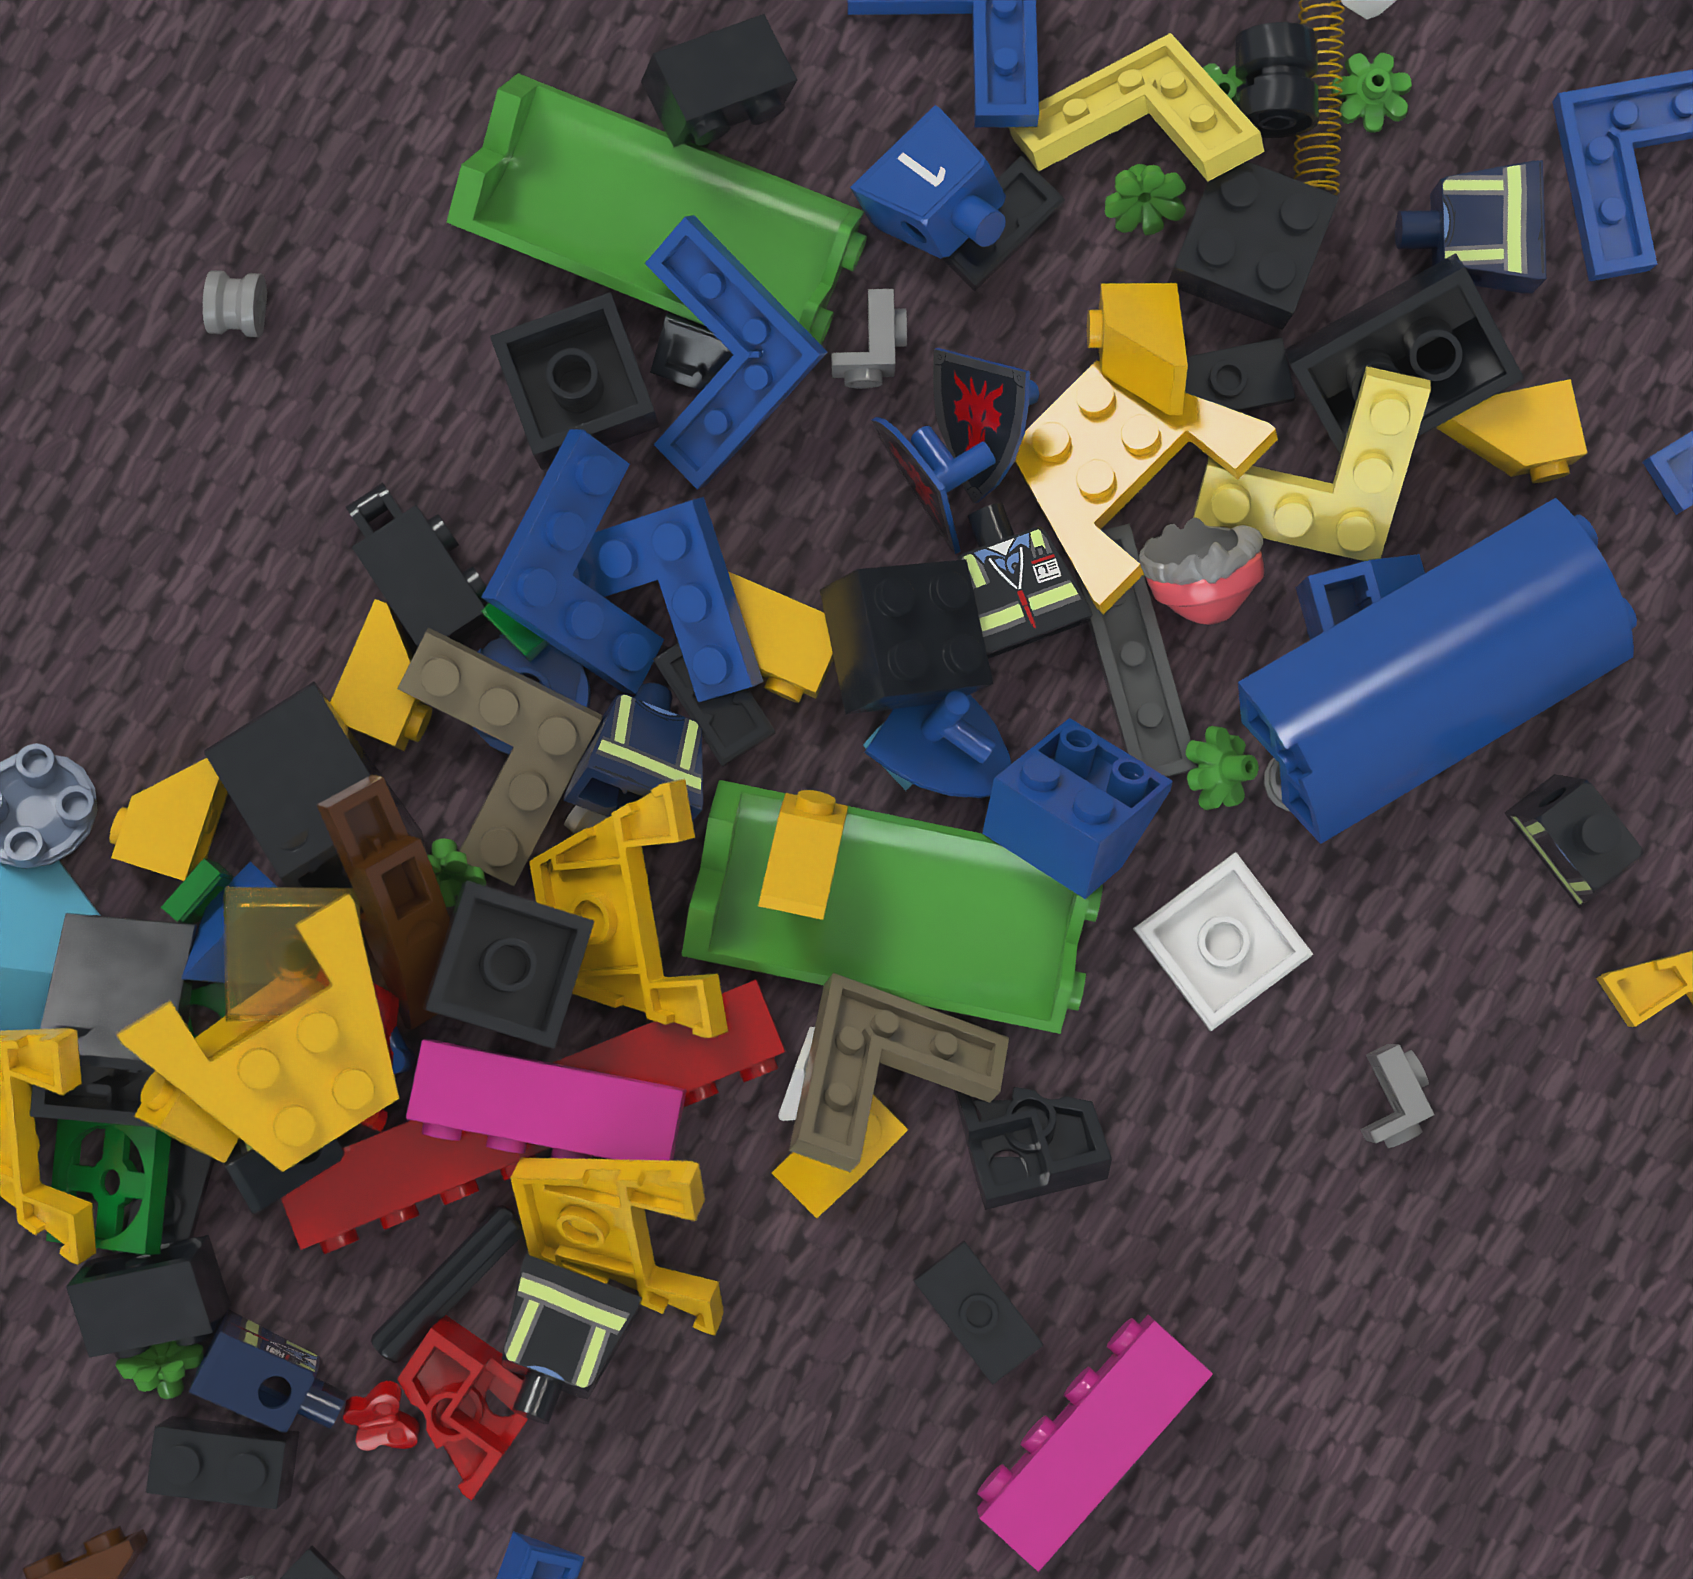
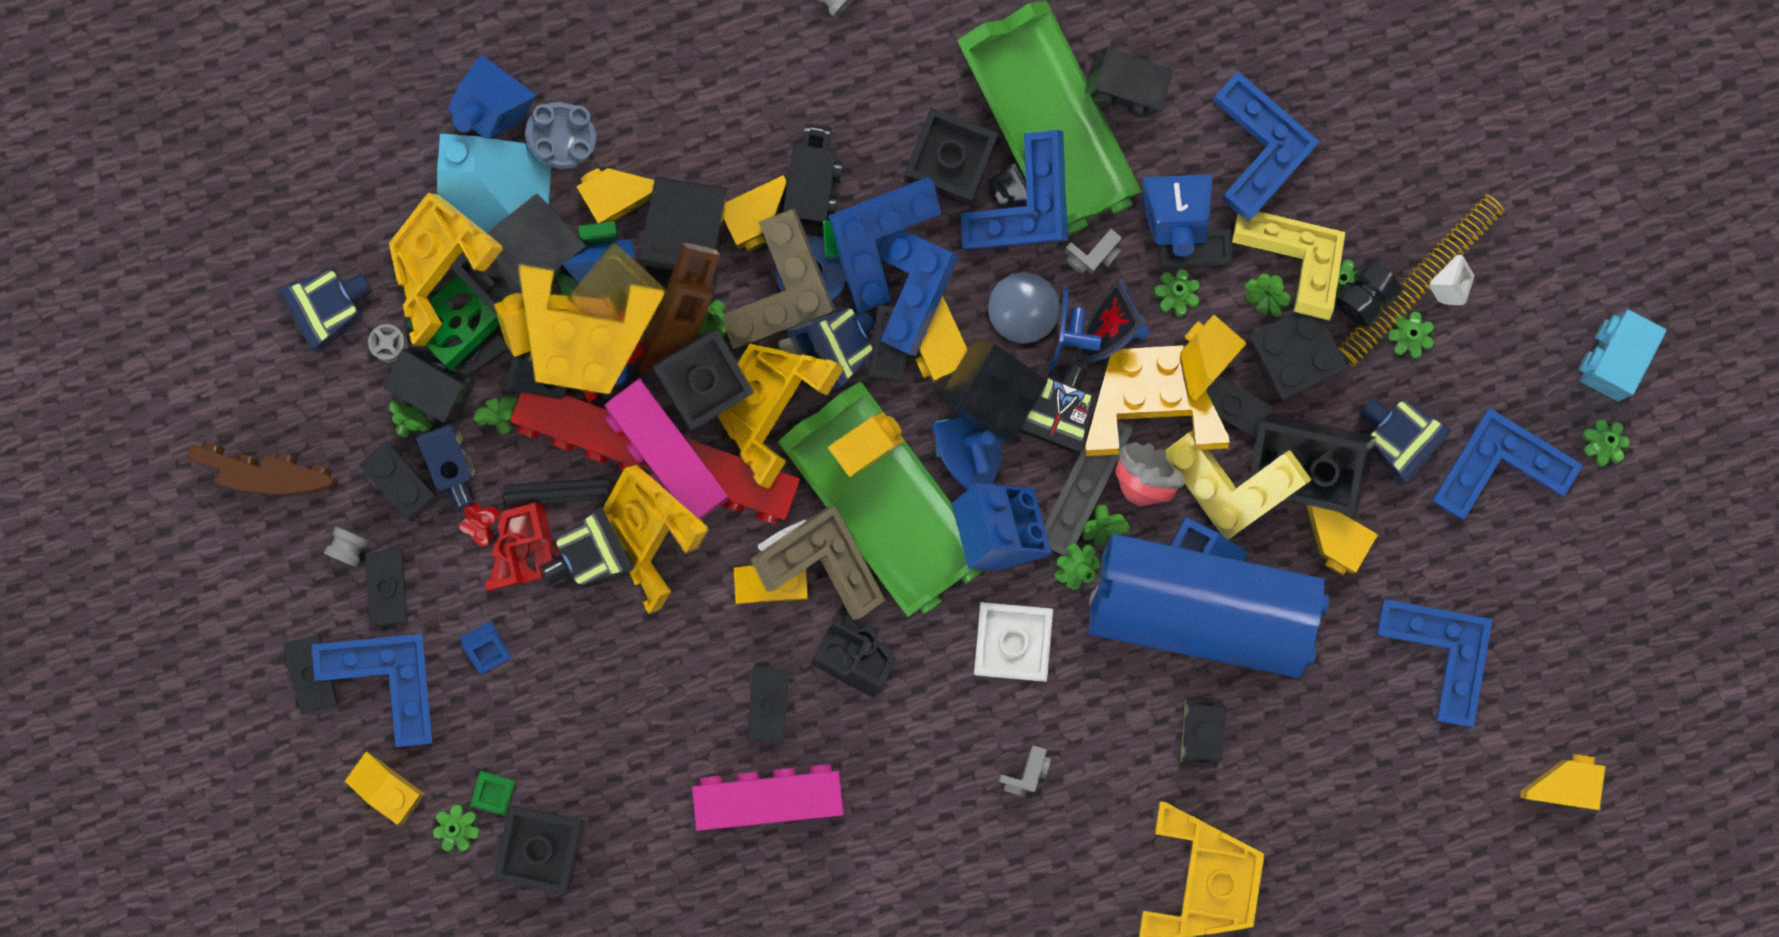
camera: 45 degrees right, 0 degrees up
(31, 1290) = (383, 338): none -> light grey wheel
(275, 1252) = (497, 413): none -> bright green plant
(845, 495) = (1023, 308): none -> sand blue dish
(1023, 310) = (1174, 298): none -> bright green plant
(1206, 684) = (1104, 525): none -> bright green plant

